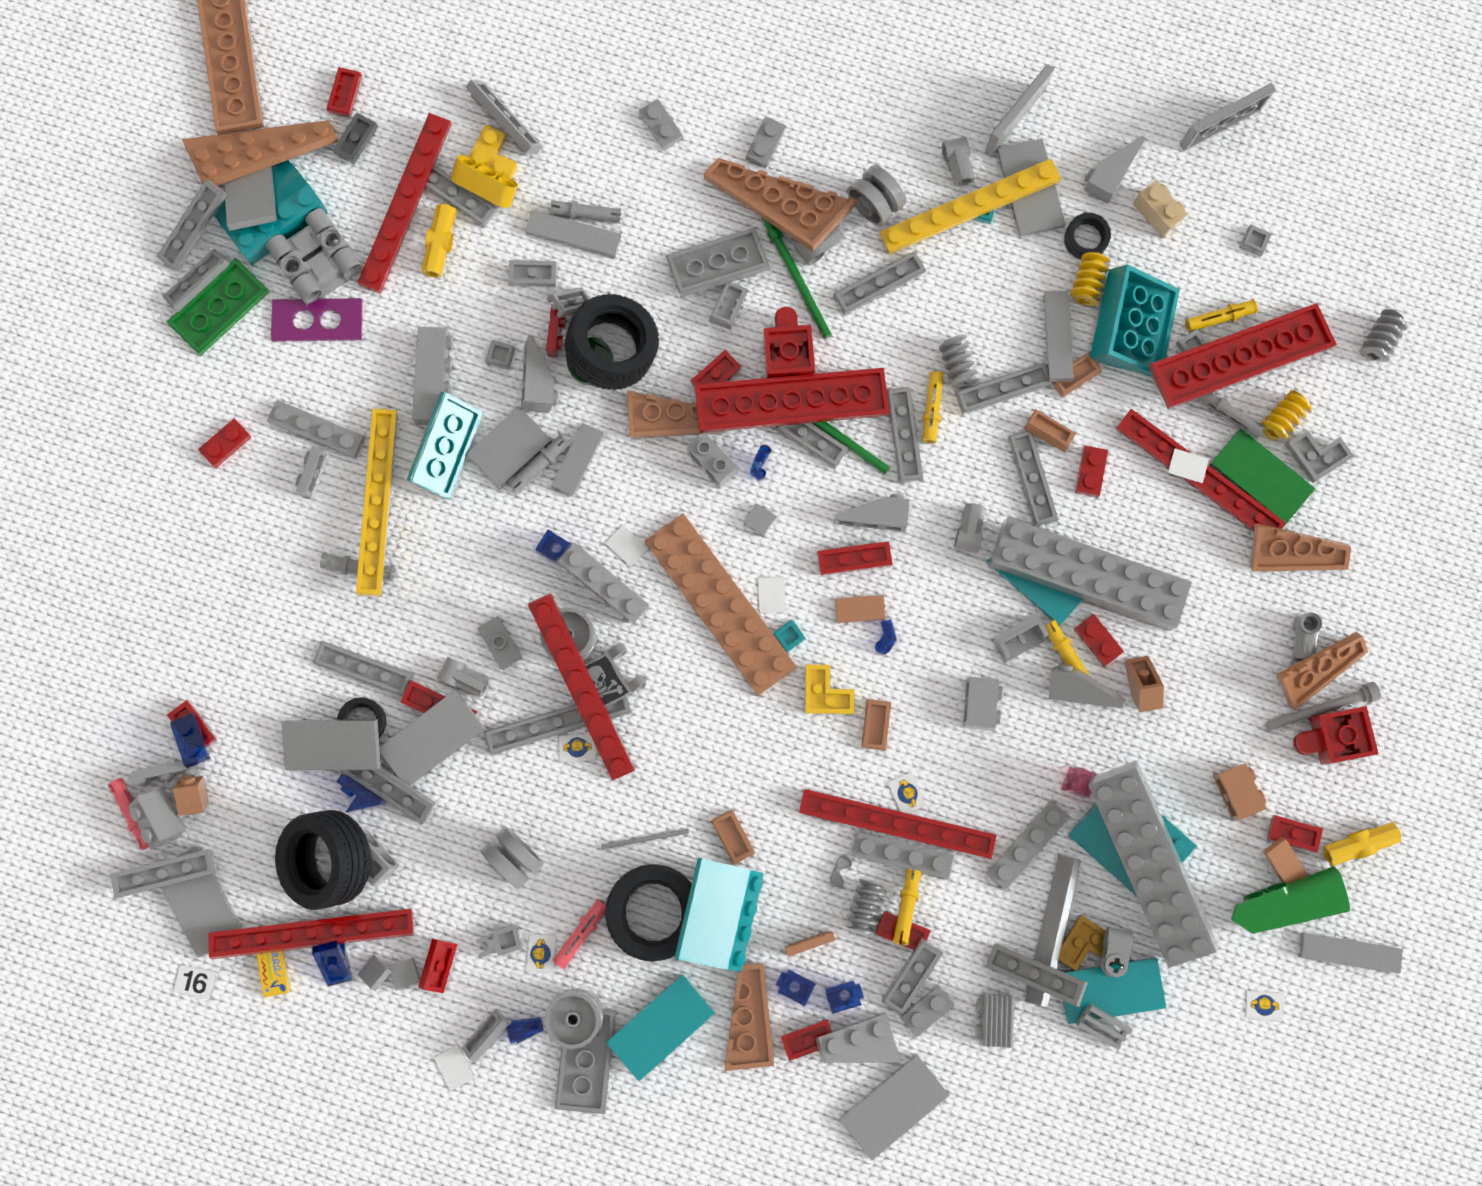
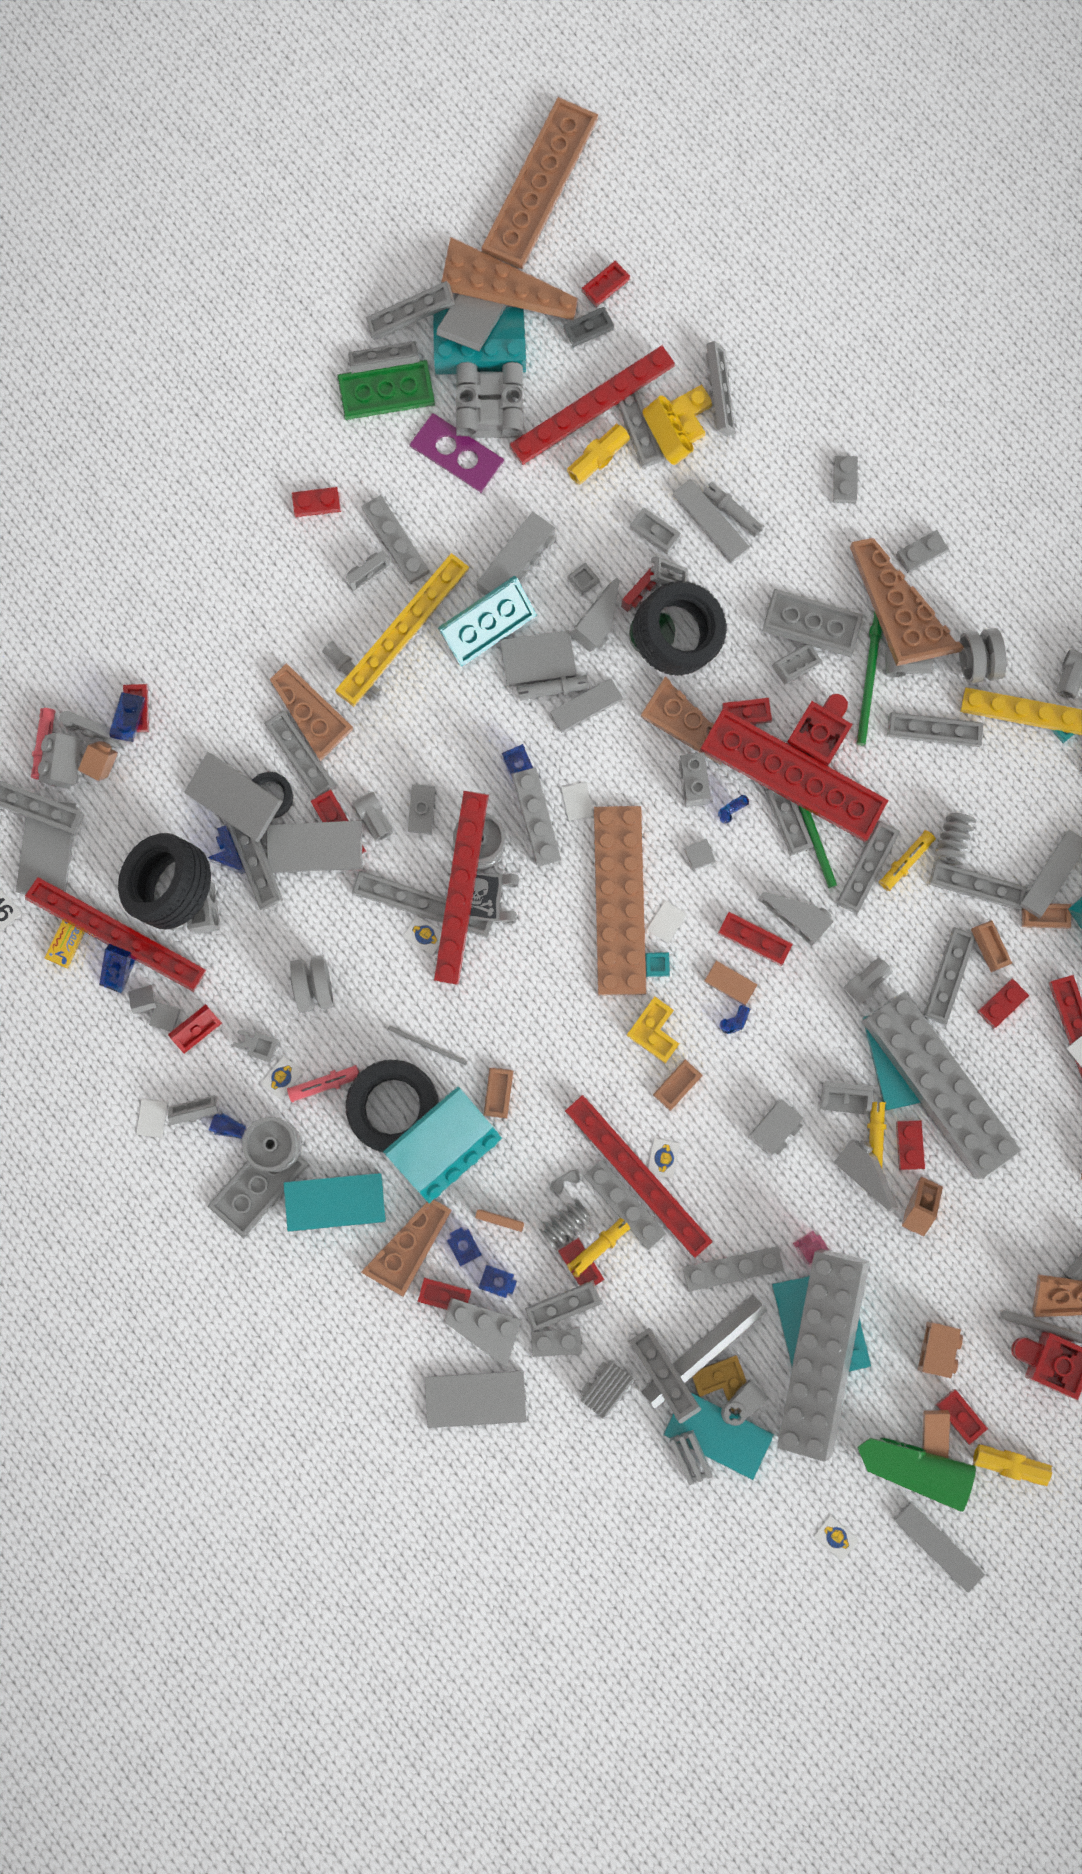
camera: 35 degrees right, 0 degrees up
(352, 627) = (314, 716): none -> nougat wing

